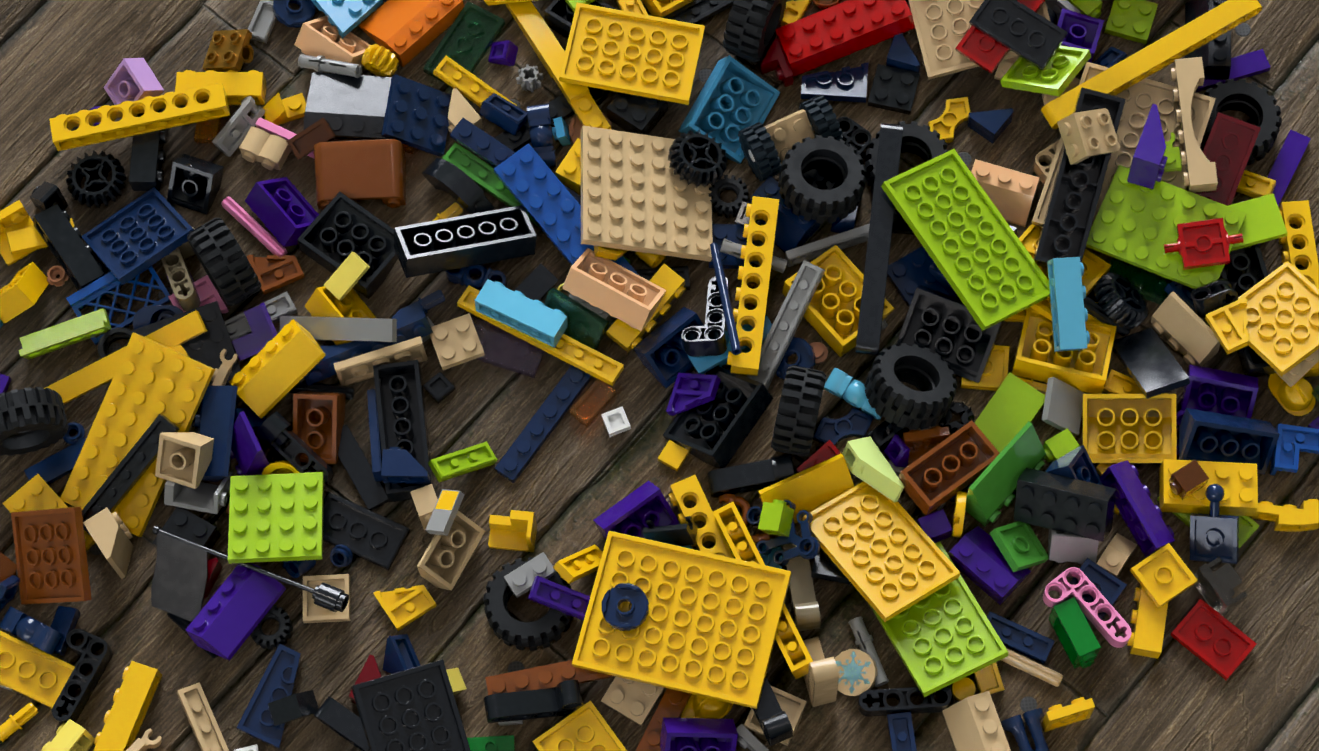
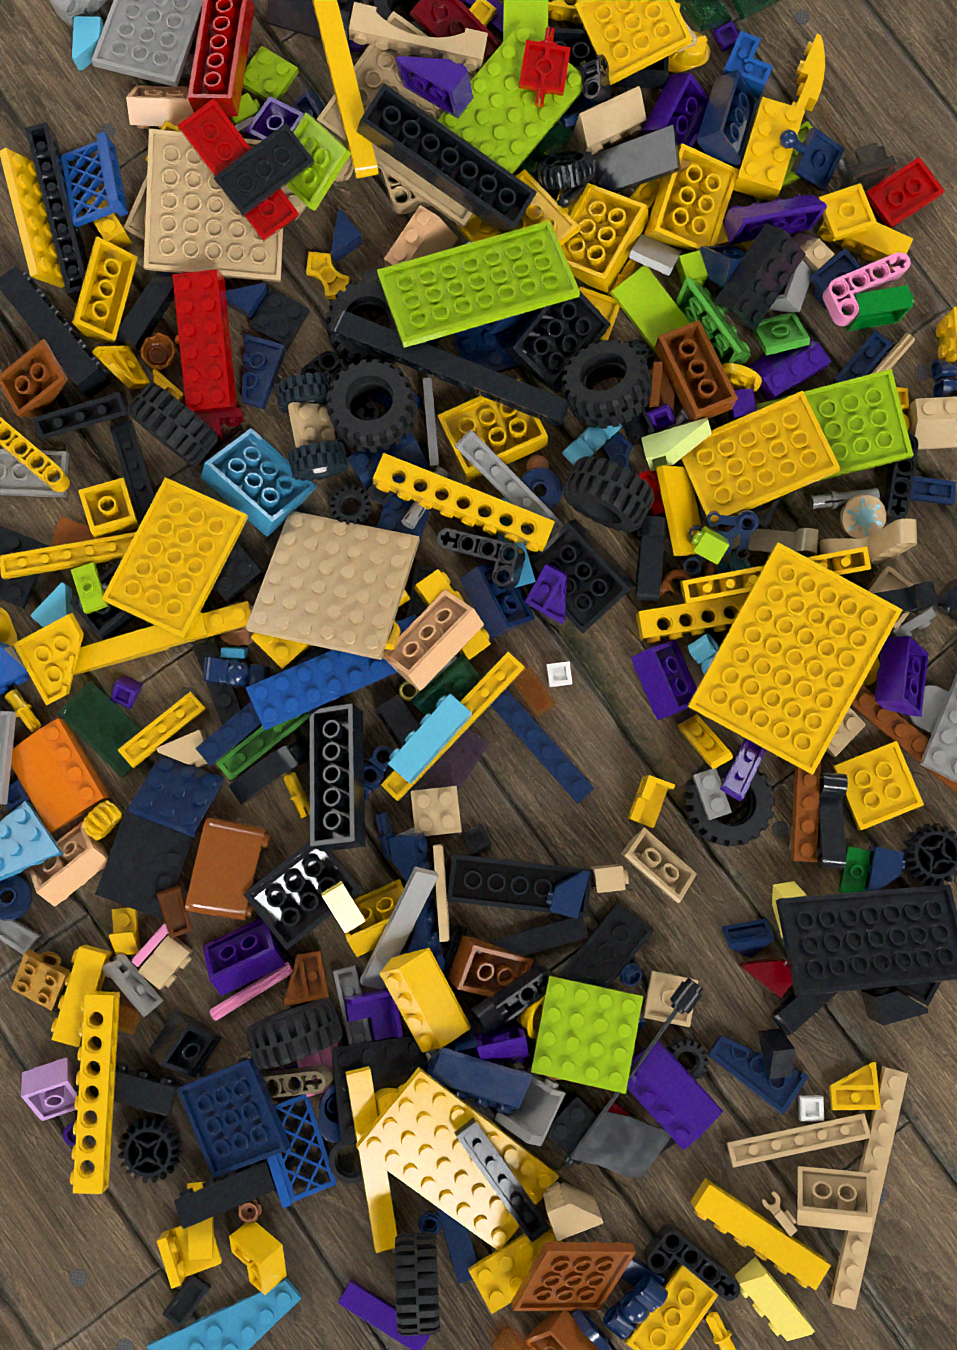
camera: 85 degrees left, 15 degrees up
(48, 196) = (160, 1206): black slope -> none
(64, 334) = (320, 1215): lime fence -> none
(183, 457) = (504, 1117): tan slope -> none
(222, 374) = (415, 1060): tan plate -> none
(321, 64) = (81, 896): light grey pin -> none
(376, 452) = (525, 915): dark blue tile -> none
(405, 604) = (694, 922): yellow wing -> none
(444, 512) = (632, 863): light grey tile -> none
(462, 461) = (567, 833): lime tile -> none
(503, 113) = (199, 706): dark blue slope -> none
(529, 78) = (170, 669): light grey gear -> none
(625, 620) = (786, 712): dark blue tile -> none
(672, 534) = (696, 648): black hinge -> none
(673, 455) = (606, 628): yellow tile -> none
(705, 169) = (312, 515): black gear -> none
(725, 299) = (472, 534): dark blue piece -> none
(1068, 304) = (569, 211): medium azure brick -> none
(1088, 134) = (413, 130): tan bracket -> none
(1188, 480) = (771, 157): reddish brown brick -> none
(1230, 325) = (631, 71): yellow wing -> none

